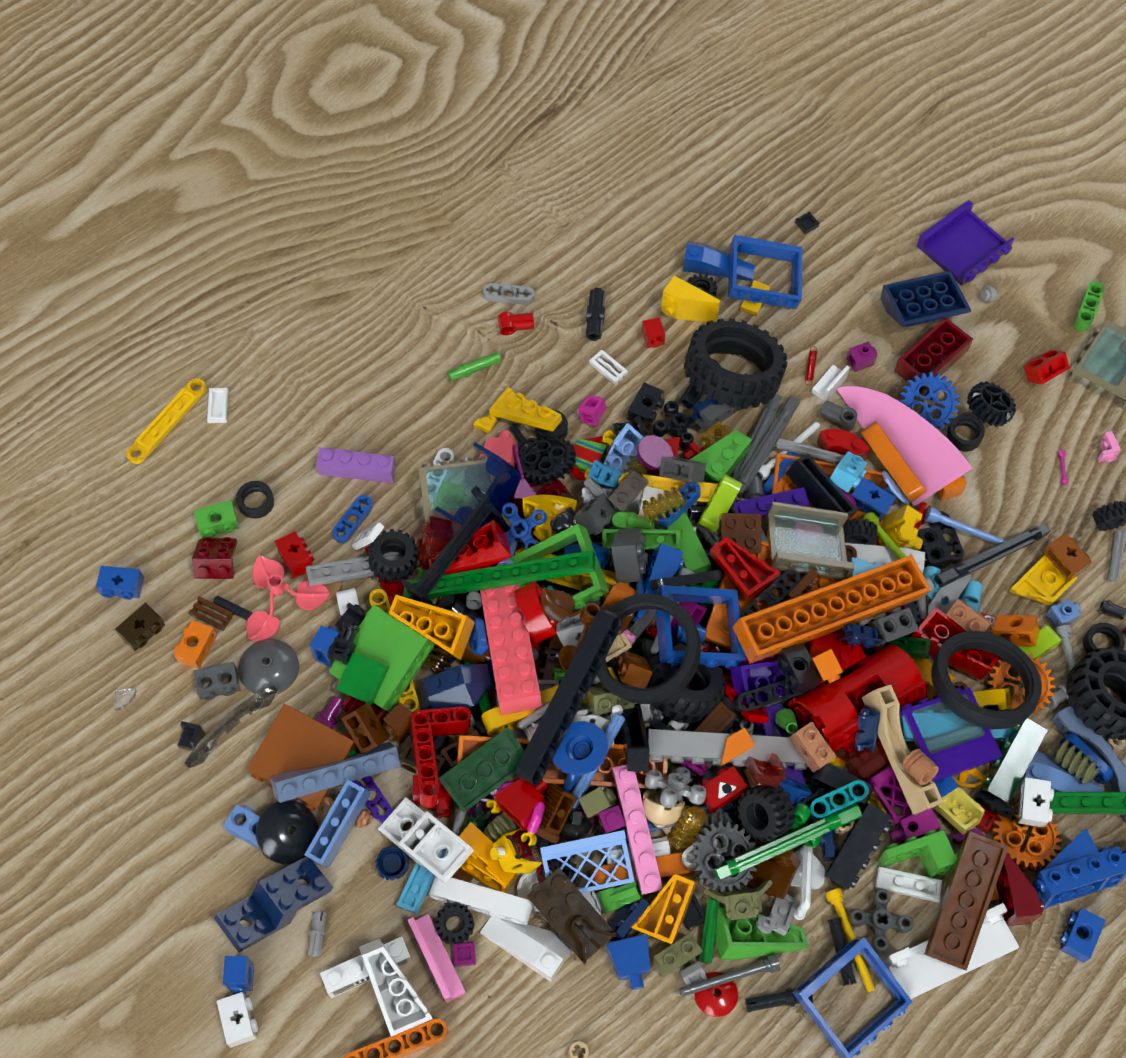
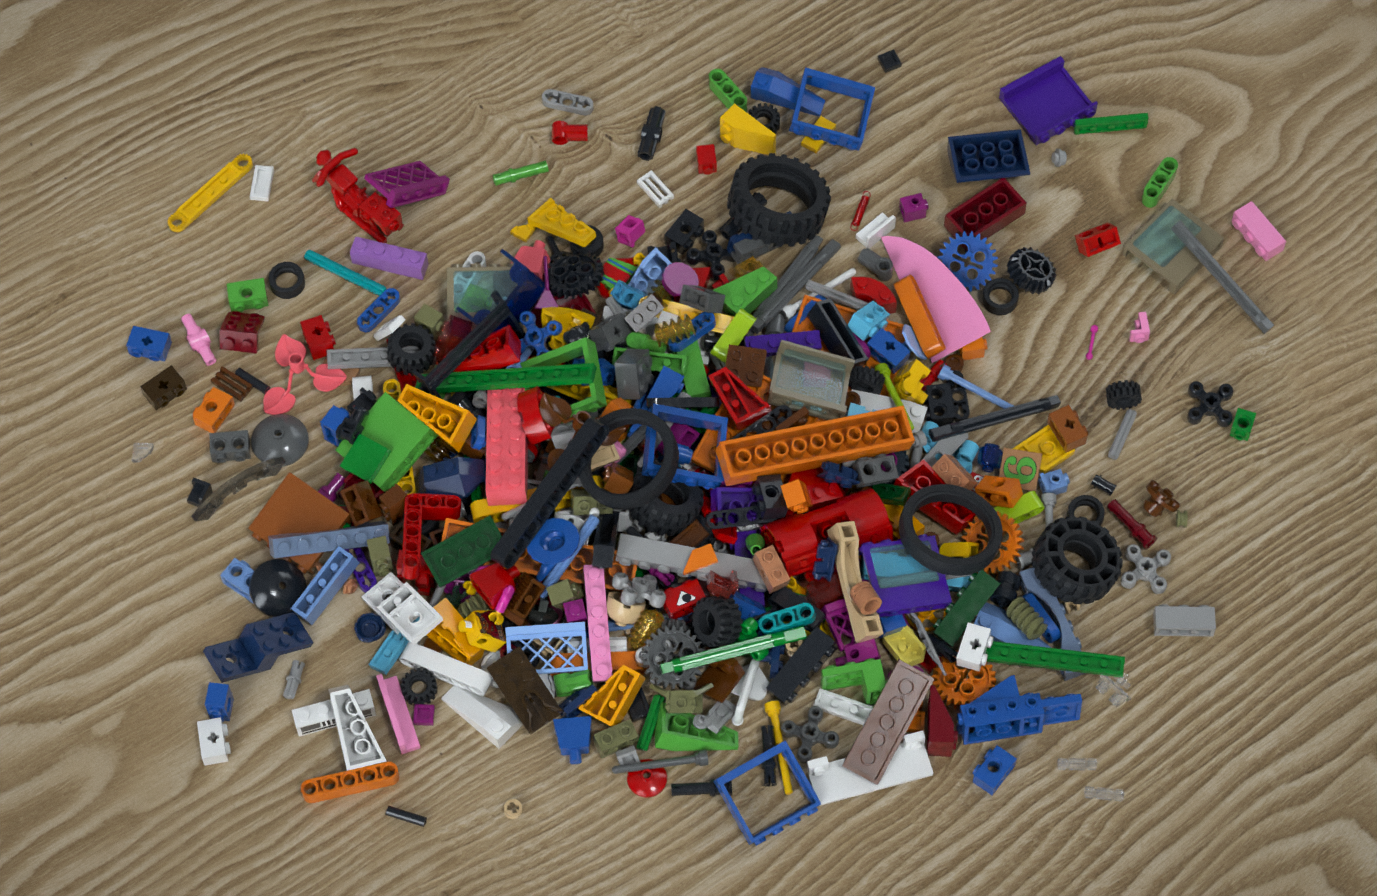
camera: 10 degrees right, 0 degrees up
(171, 571) = (198, 339): none -> bright pink pin
(313, 412) = (354, 201): none -> red piece
(313, 485) = (345, 272): none -> teal axle
(368, 396) = (409, 191): none -> magenta fence
(392, 782) = (380, 556): none -> olive brick
(408, 522) = (430, 319): none -> olive brick
(578, 860) = (547, 651): none -> tan bracket
(659, 265) = (725, 85): none -> bright green beam
(937, 502) = (955, 362): none -> reddish brown tile
(985, 804) = (927, 642): none -> light grey piece
(995, 595) = (989, 457): none -> clear blue head
(1028, 257) = (1110, 123): none -> green tile
(1029, 601) = (1022, 466): none -> tile
(1051, 723) = (1007, 590): none -> black wheel

